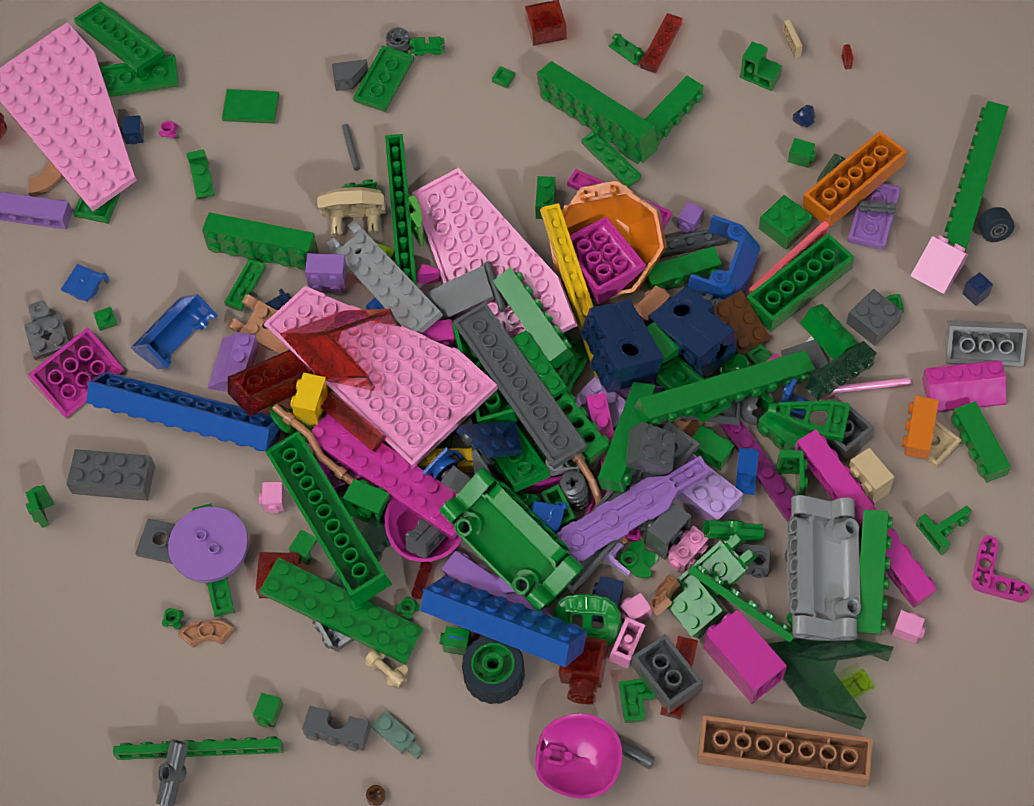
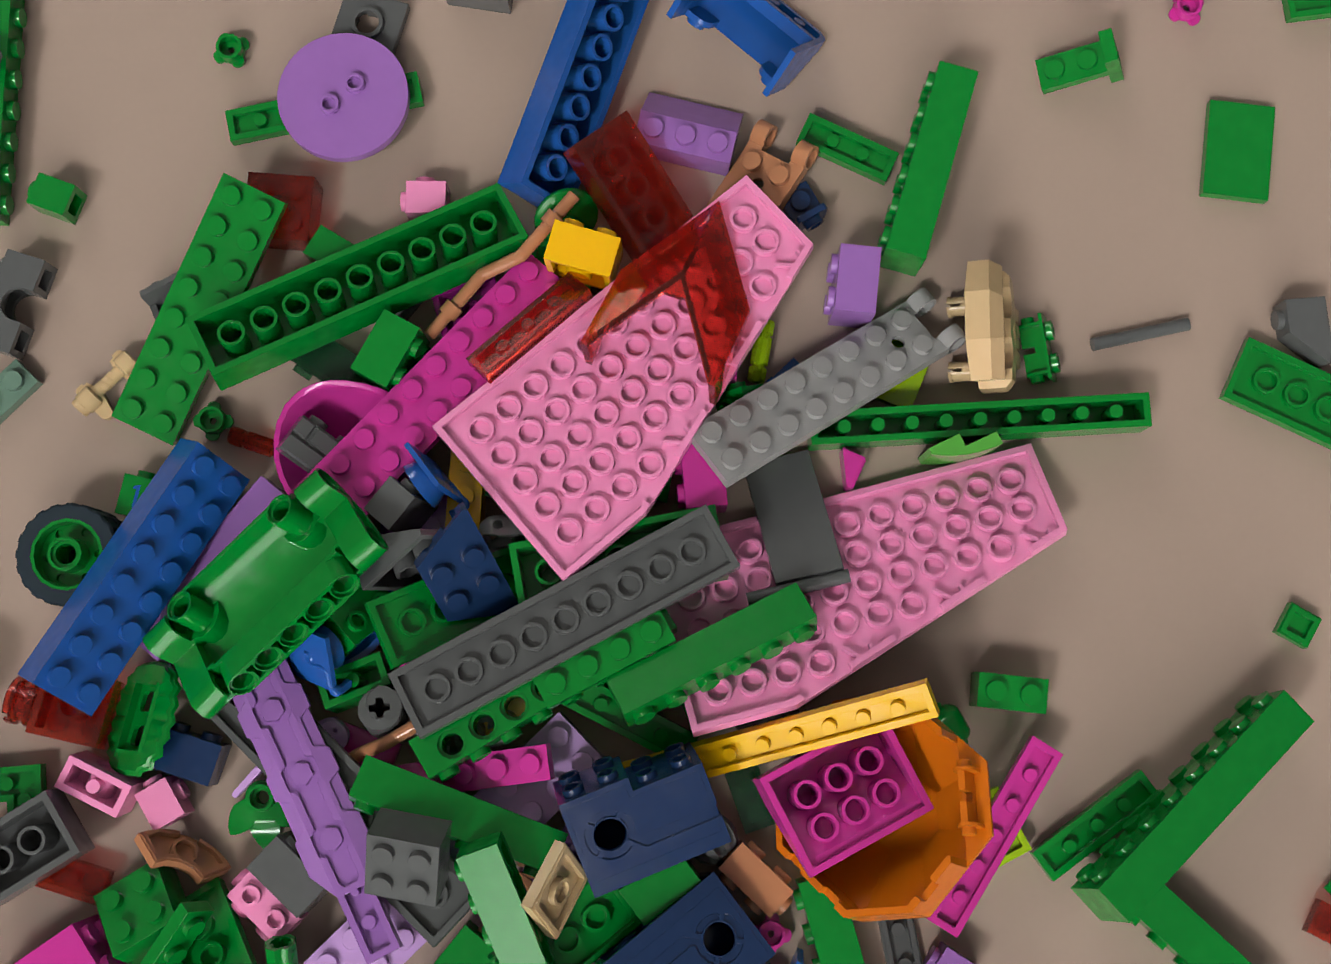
camera: 90 degrees right, 20 degrees up
(206, 631) = (207, 103): nougat tile -> none
(659, 381) = (555, 890): none -> tan tile

